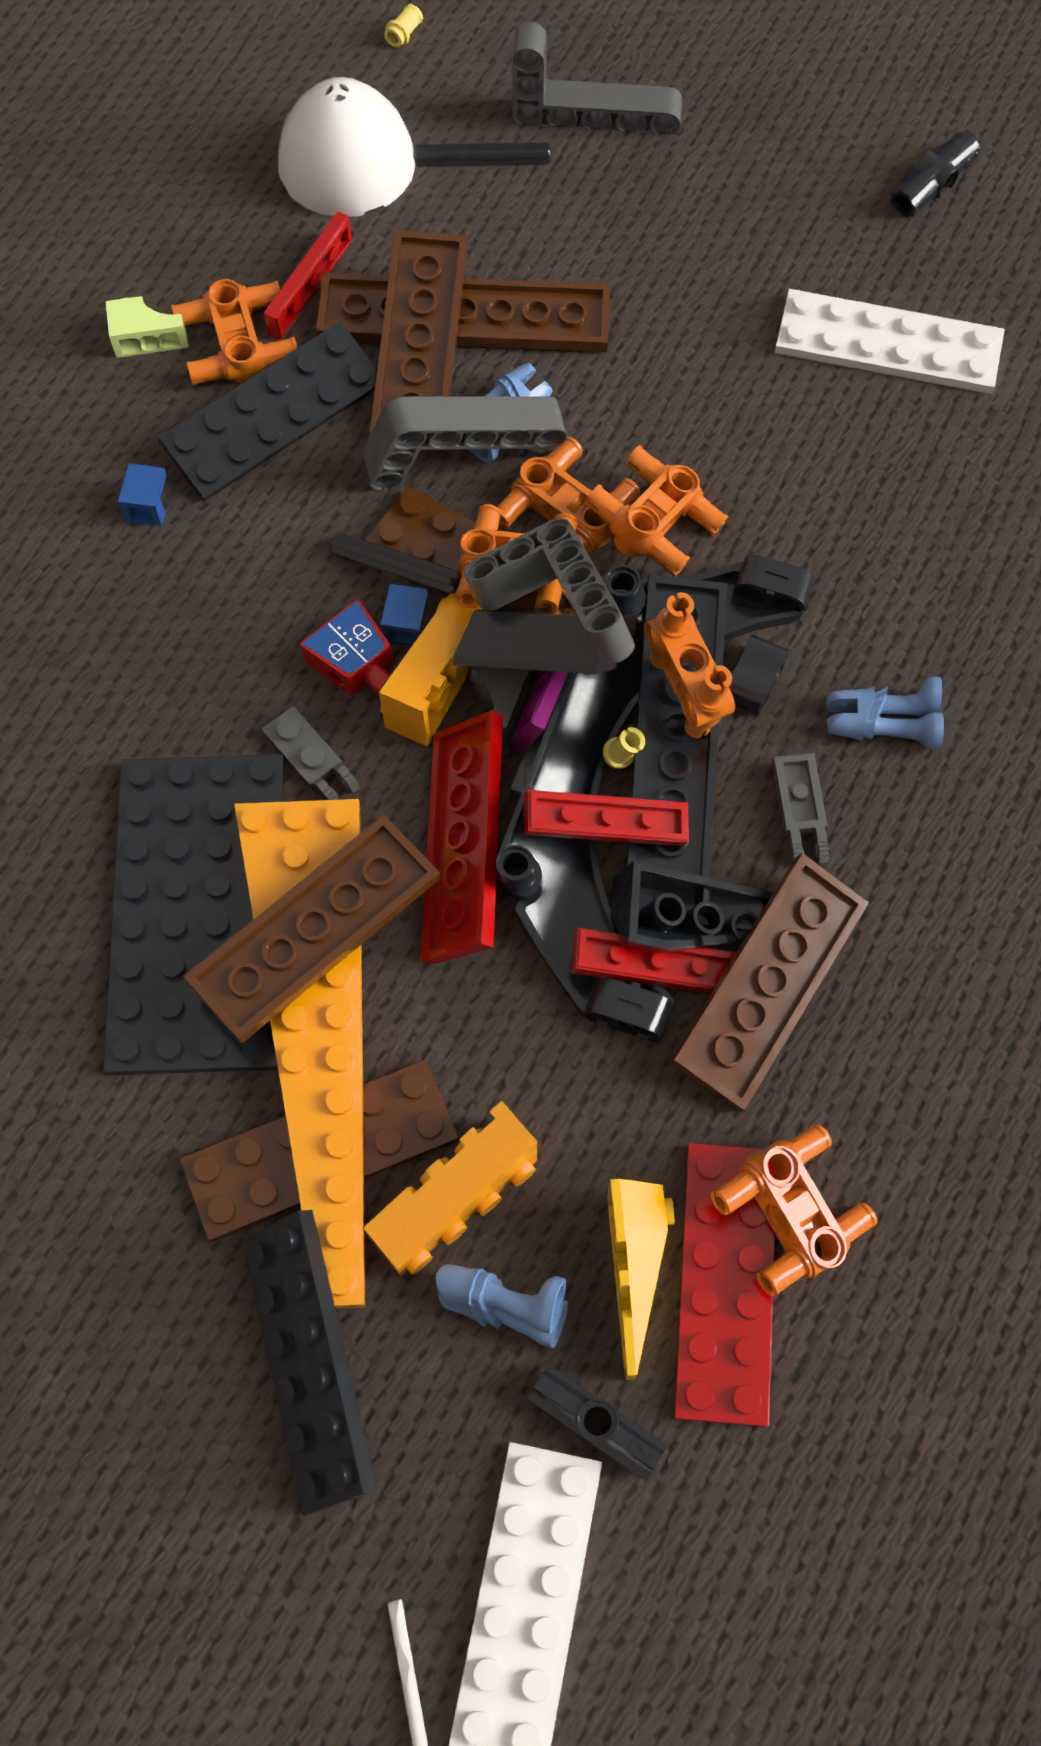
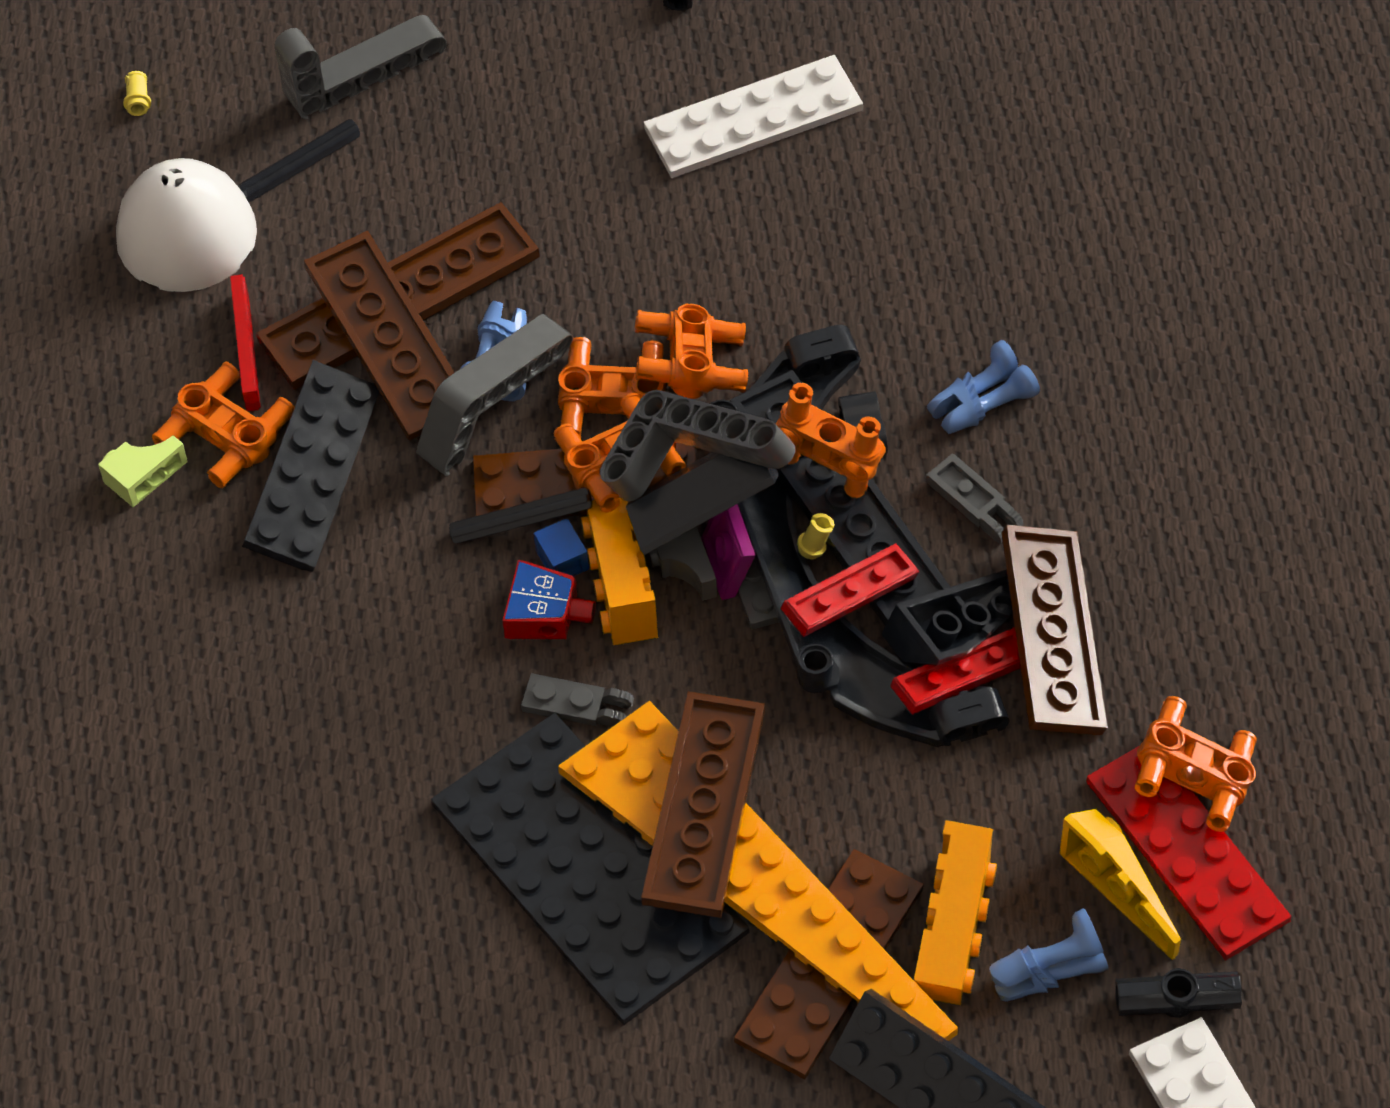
camera: 35 degrees left, 10 degrees down
(142, 493) = (267, 593): blue panel -> none
(463, 839) = (745, 665): red plate -> none

